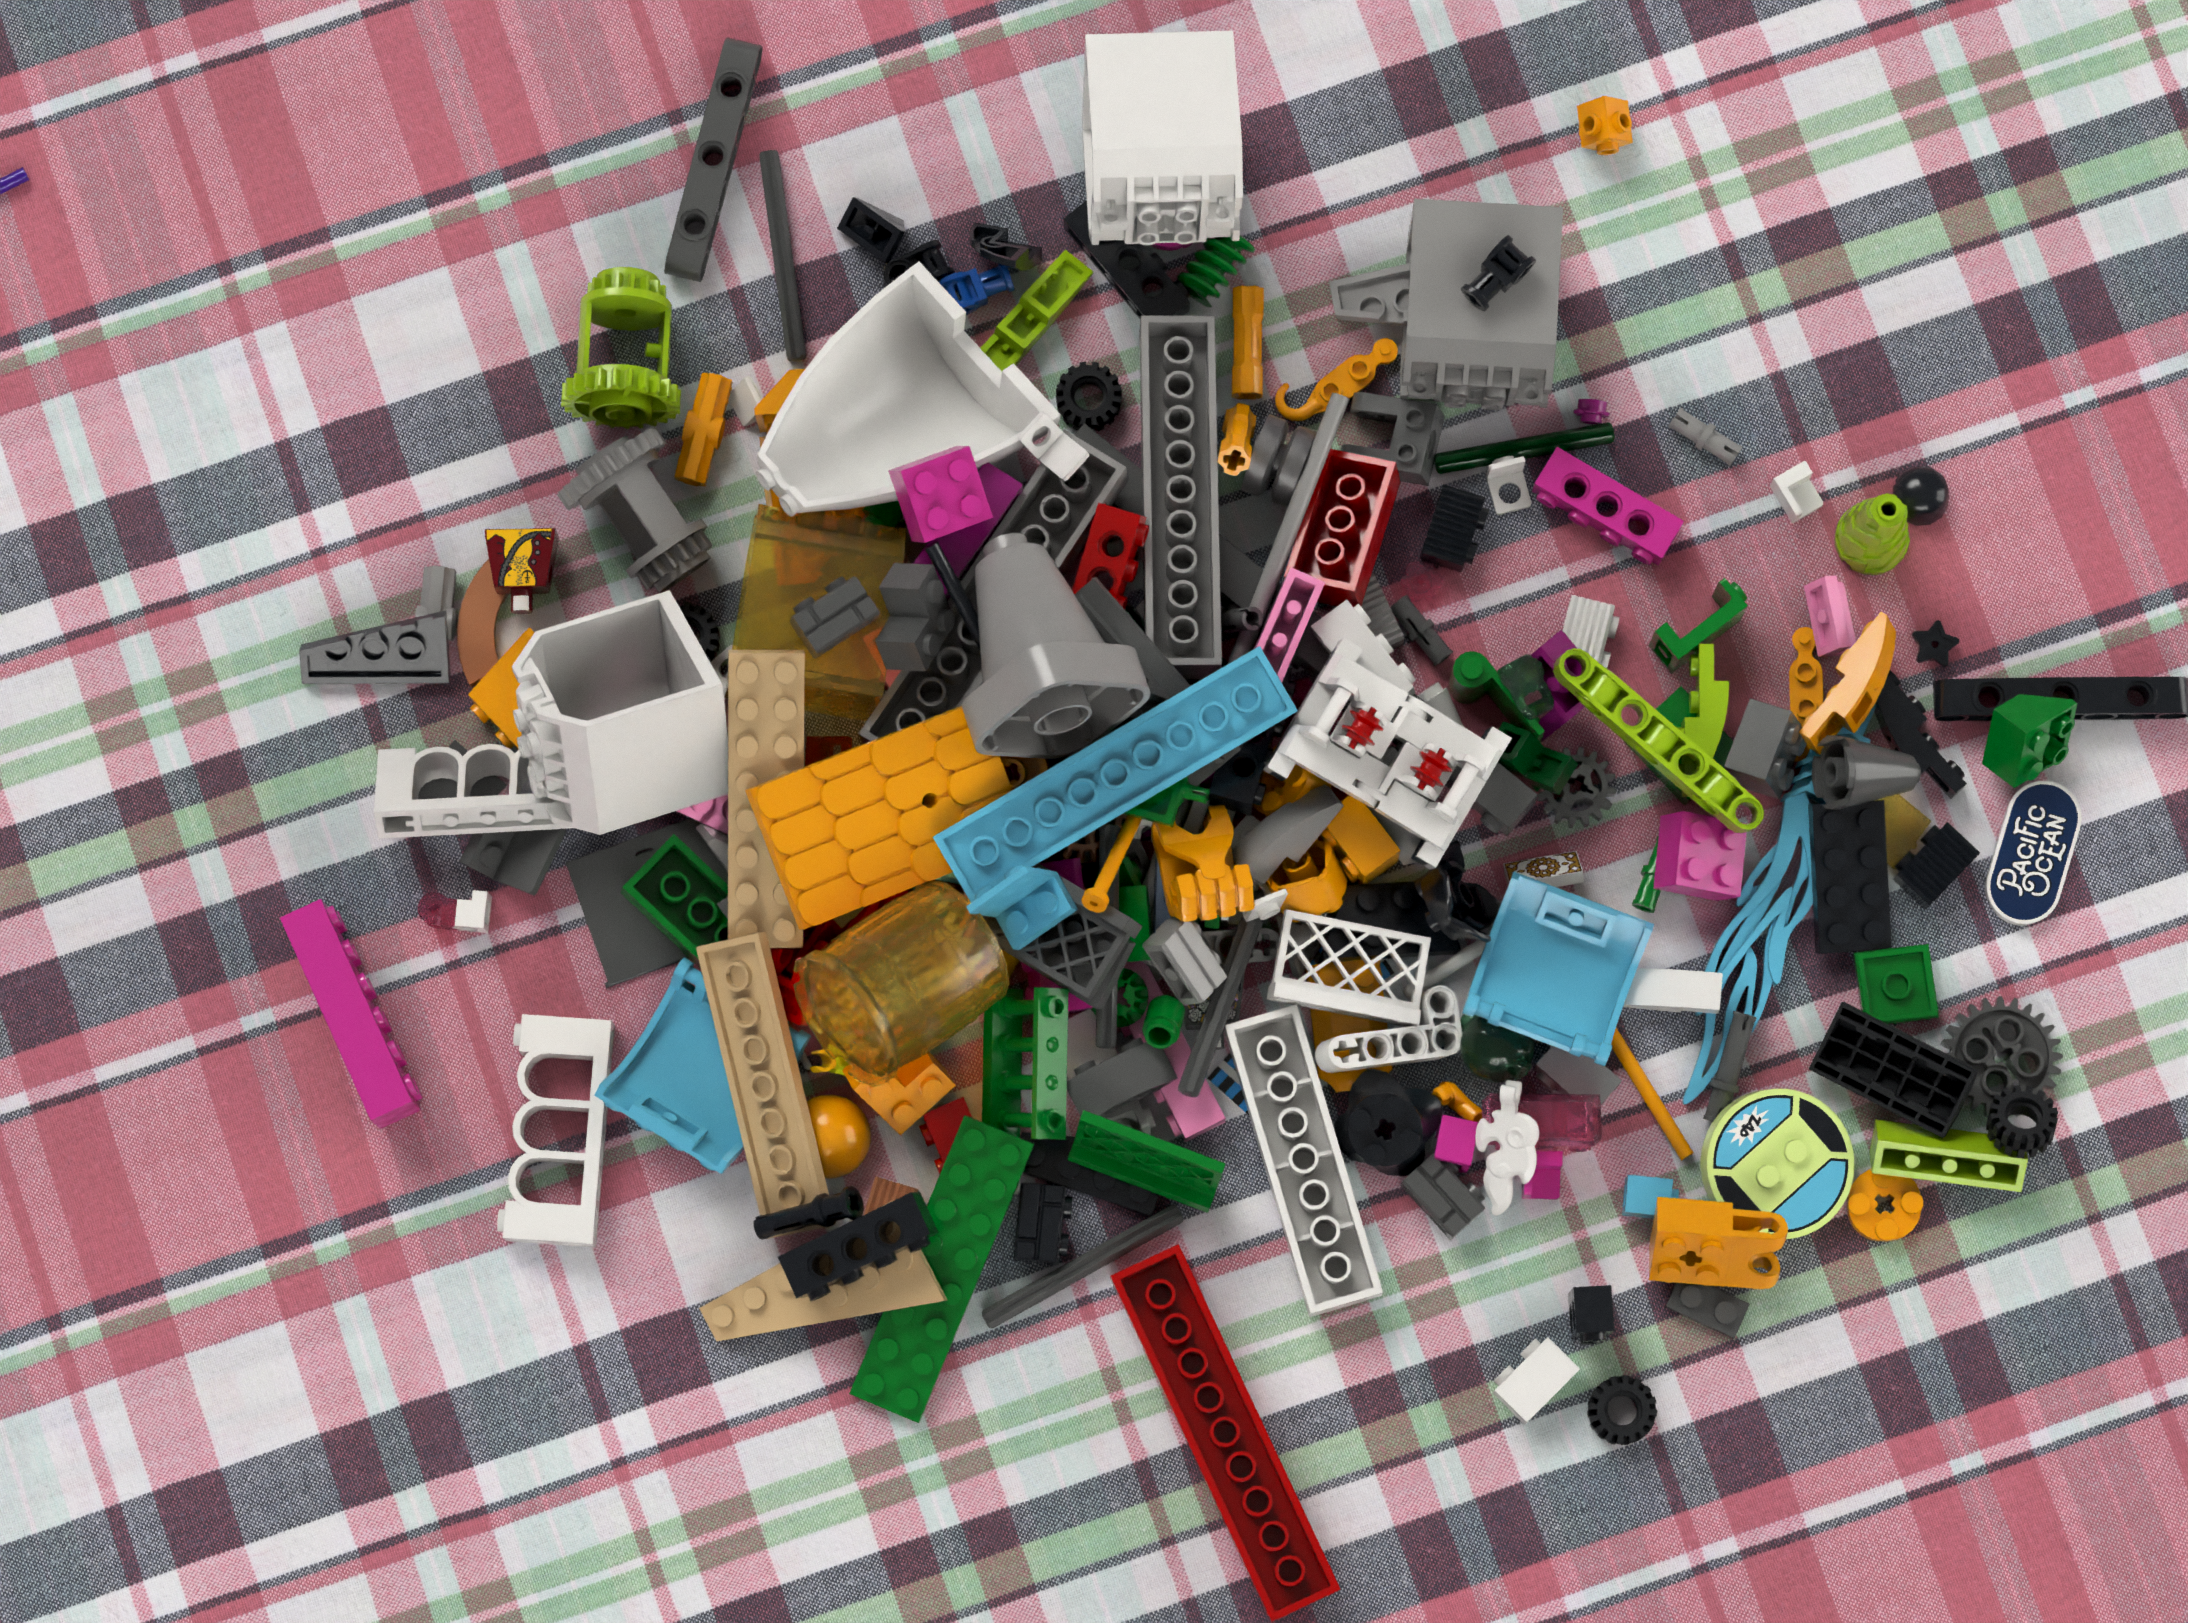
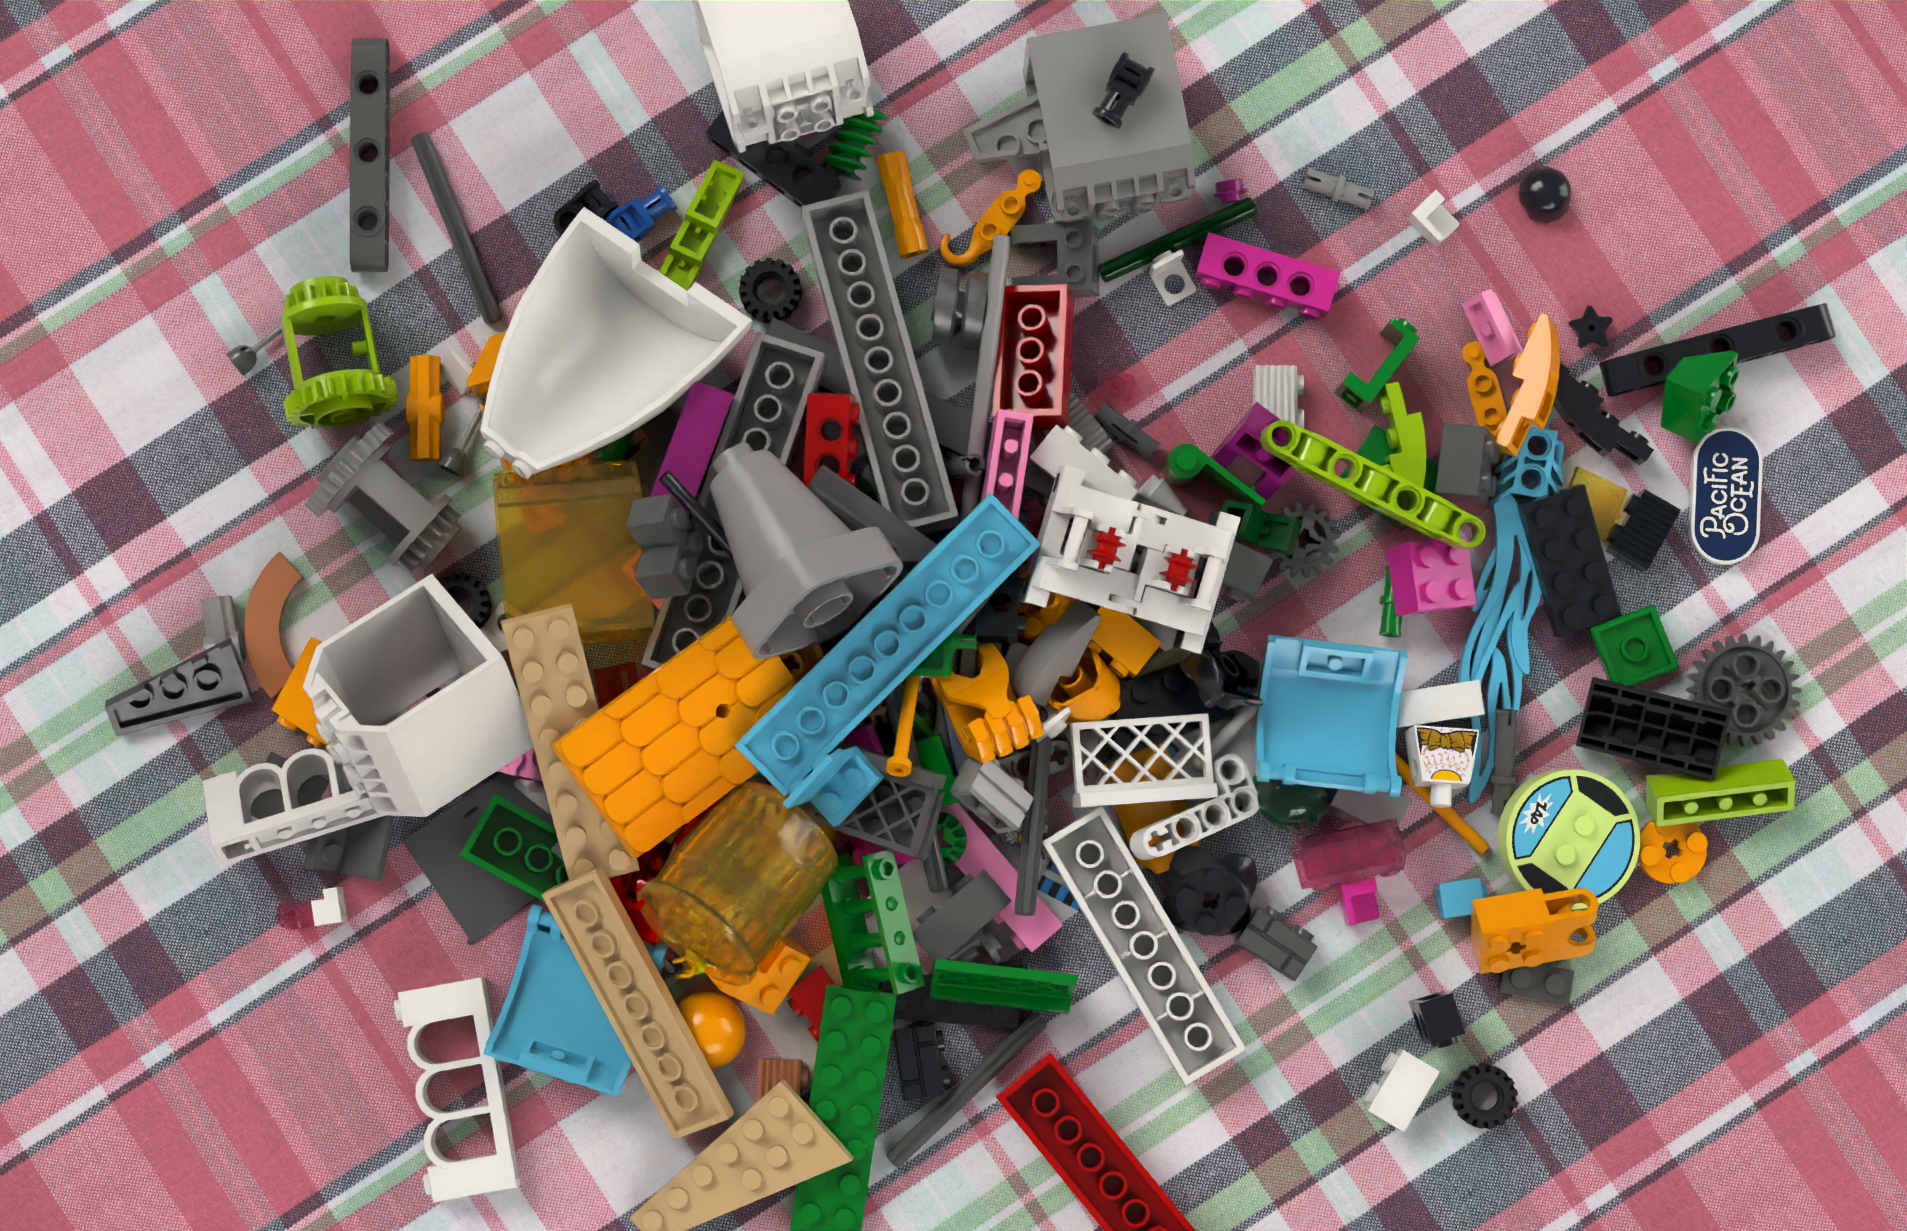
camera: 25 degrees left, 5 degrees up
(350, 1014) = (240, 1031): dark pink brick -> none
(522, 563) = (290, 575): torso -> none
(533, 333) = (245, 357): none -> dark grey hinge
(720, 489) = (455, 459): none -> hinge
(802, 1263) = (799, 1093): black brick -> none
(822, 1211) = (719, 1108): black pin -> none
(834, 616) = (590, 564): dark grey brick -> none
(872, 228) = (533, 183): black slope -> none
(940, 494) = (660, 425): dark pink brick -> none
(993, 245) = (648, 173): black brick -> none
(1057, 450) = (756, 353): white bracket -> none
(1163, 1021) = (986, 854): green brick -> none
(1235, 447) = (918, 309): light orange axle -> none
(1452, 1096) = (1259, 849): light orange arm -> none
(1453, 528) = (1132, 330): black brick -> none
(1455, 1141) = (1276, 892): dark pink panel -> none
(1517, 1154) = (1335, 890): white piece -> none
(1522, 678) = (1234, 457): clear green piece -> none
(1553, 869) = (1295, 622): tile -> none
(1663, 1048) = (1441, 759): none -> white torso
(1860, 772) = (1558, 465): dark grey cone -> none
(1873, 535) = (1513, 241): lime cone -> none
(2025, 1104) = (1787, 731): black tyre -> none

